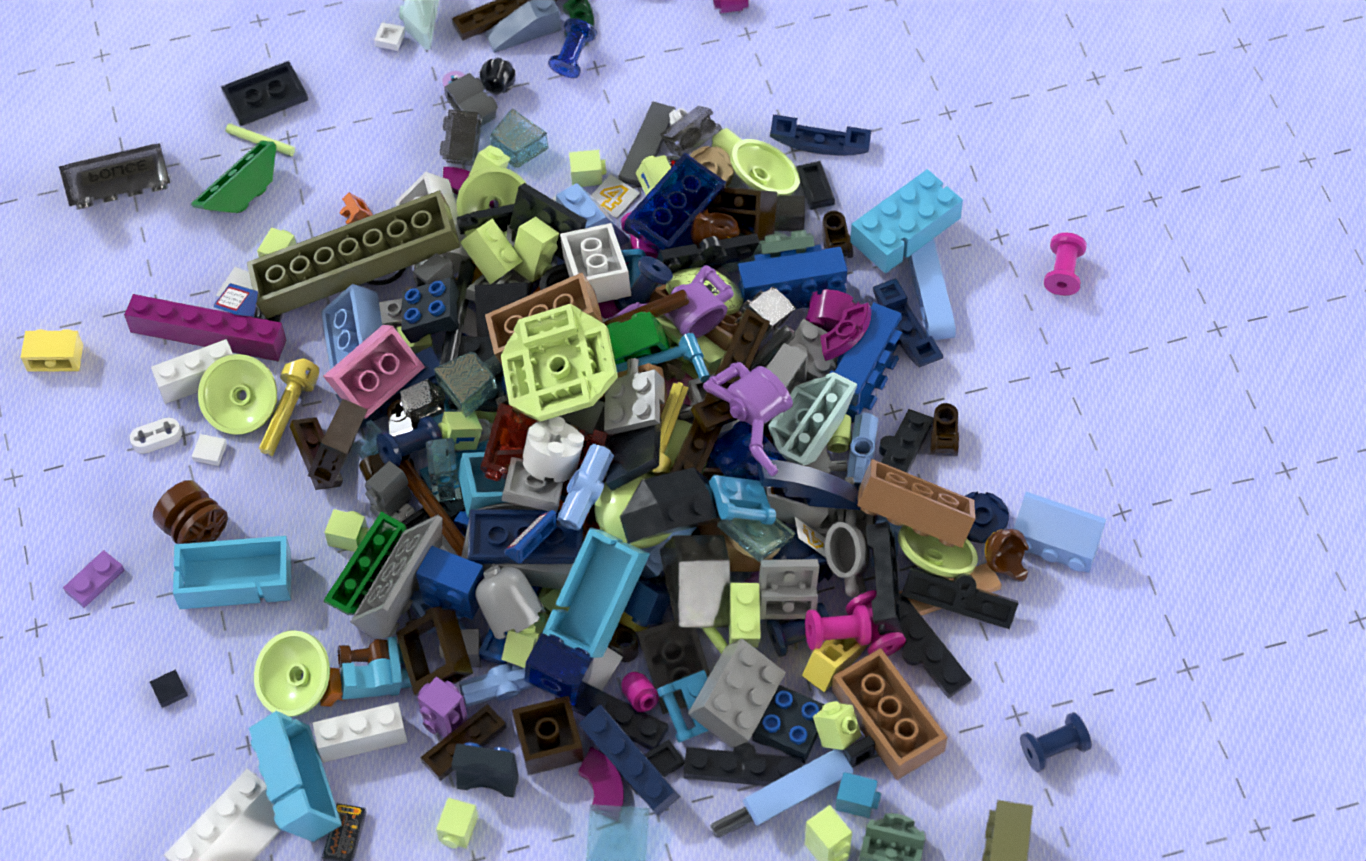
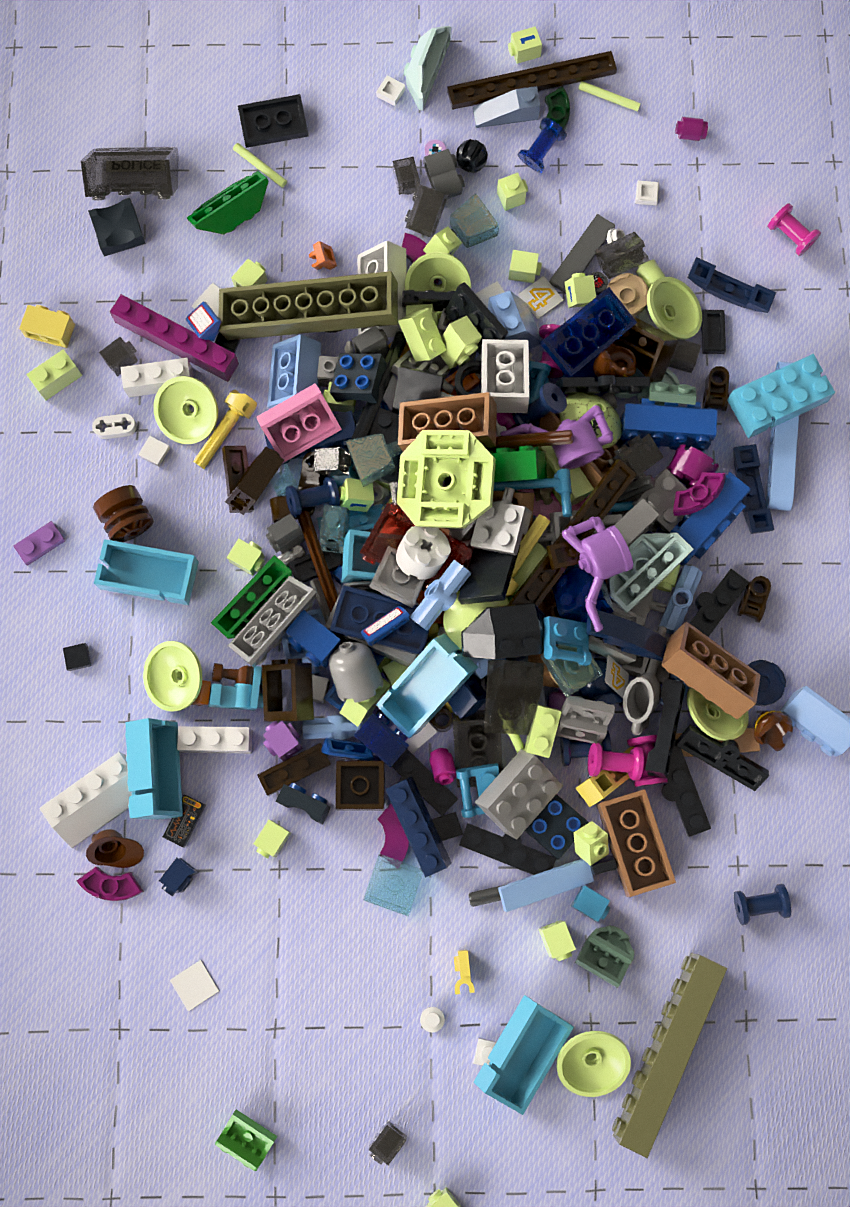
camera: 15 degrees right, 20 degrees up
(72, 397) = (54, 374): none -> yellowish green brick
(111, 234) = (117, 227): none -> black brick
(140, 358) = (119, 355): none -> clear smoke brick
(428, 111) = (406, 175): none -> clear smoke brick
(508, 700) = (347, 749): none -> blue slope
(551, 100) = (512, 191): none -> yellowish green brick
(701, 71) = (647, 193): none -> white tile
(869, 66) = (794, 229): none -> dark pink piece

